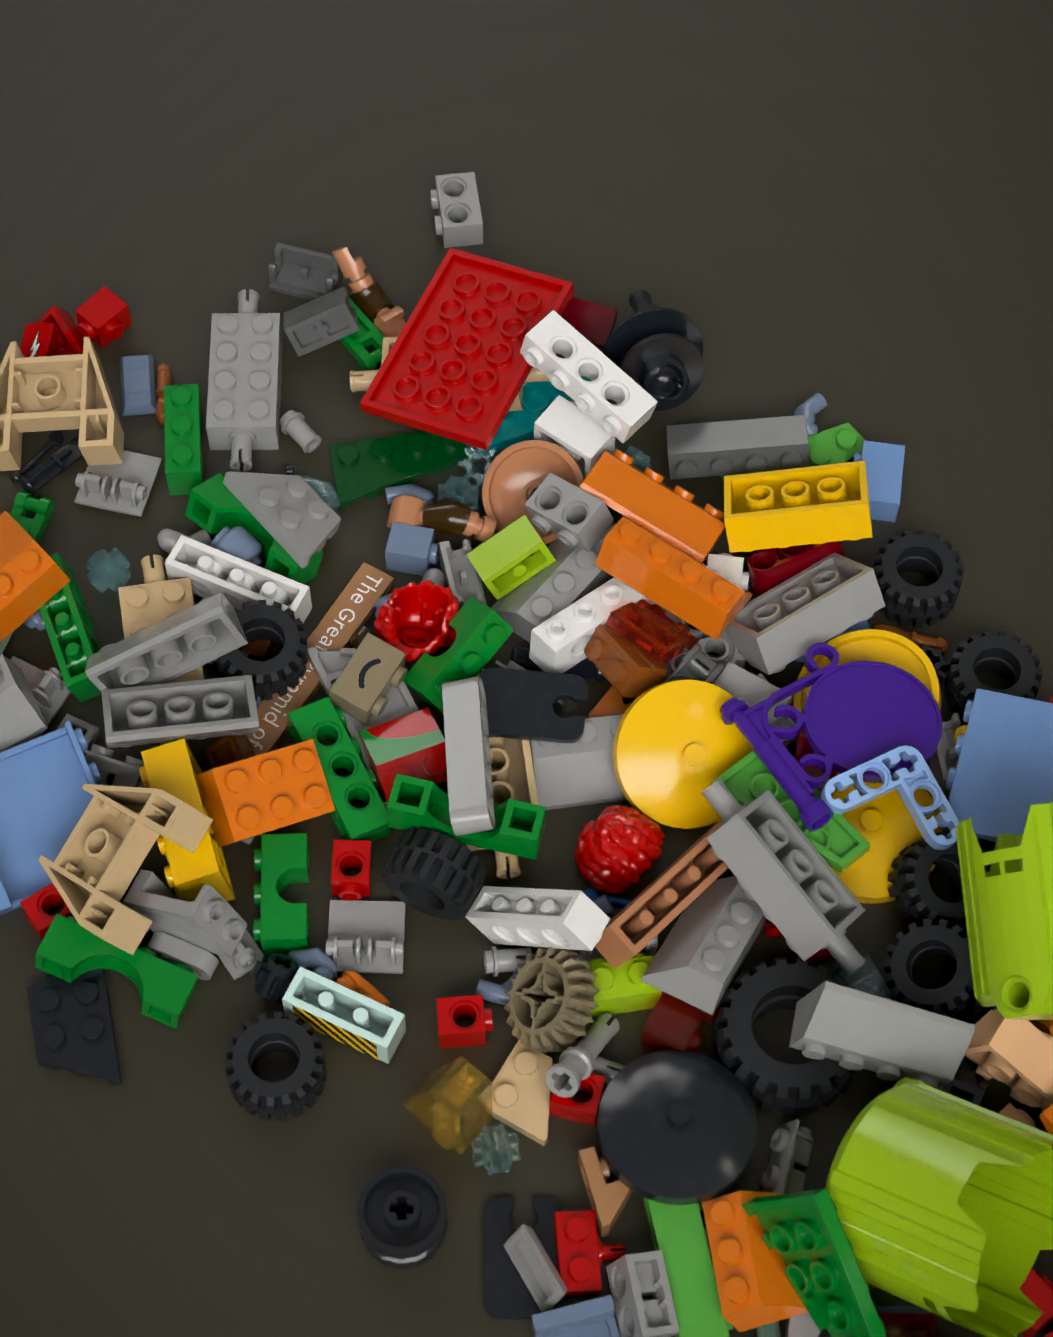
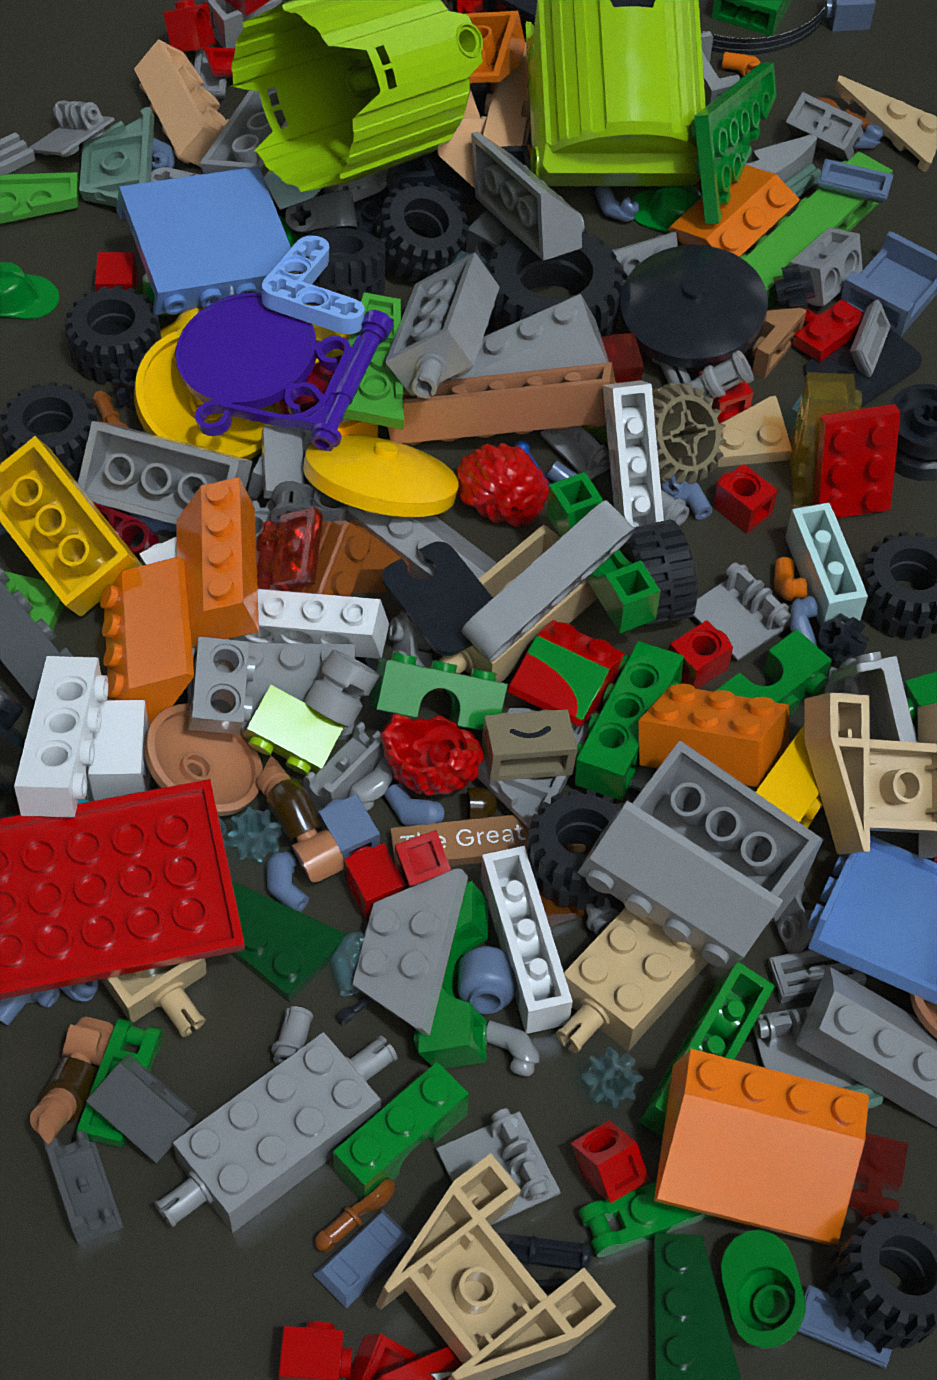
camera: 130 degrees left, 5 degrees down
(60, 526) = (610, 1161): none -> red brick
(341, 558) = (422, 858): none -> red brick
(361, 539) = (372, 876): none -> red brick
(404, 1097) = (857, 460): none -> red plate
(507, 588) = (341, 688): none -> light grey wheel
(630, 1230) = (794, 287): none -> black gear

